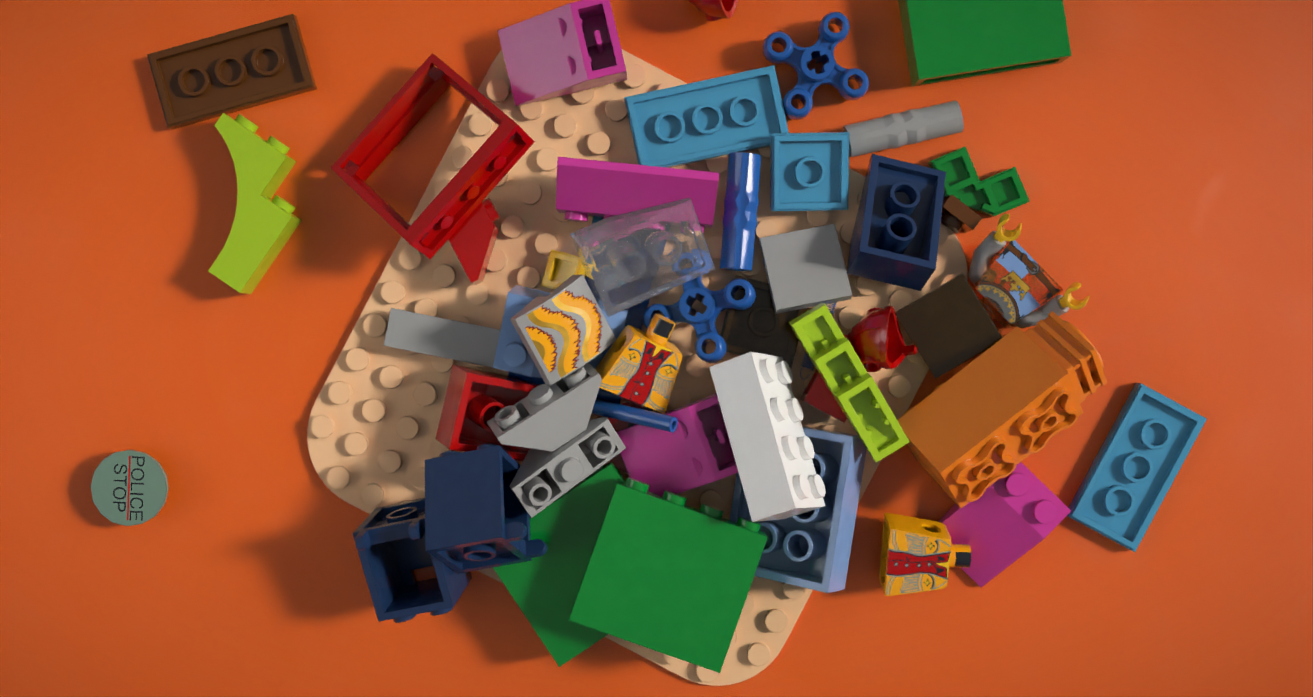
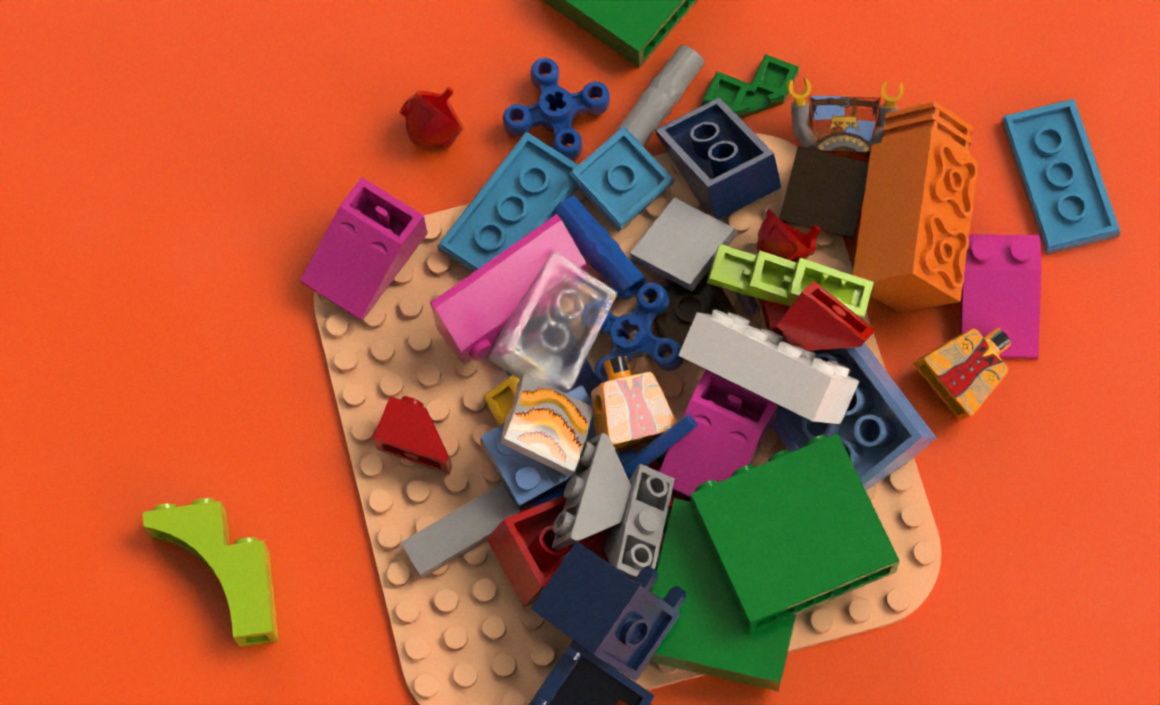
camera: 40 degrees left, 20 degrees down
(232, 71) = (116, 487): reddish brown tile -> none
(465, 189) = (382, 400): red window -> none
(838, 447) = (822, 322): none -> red slope
(958, 215) = (758, 116): reddish brown plate -> none

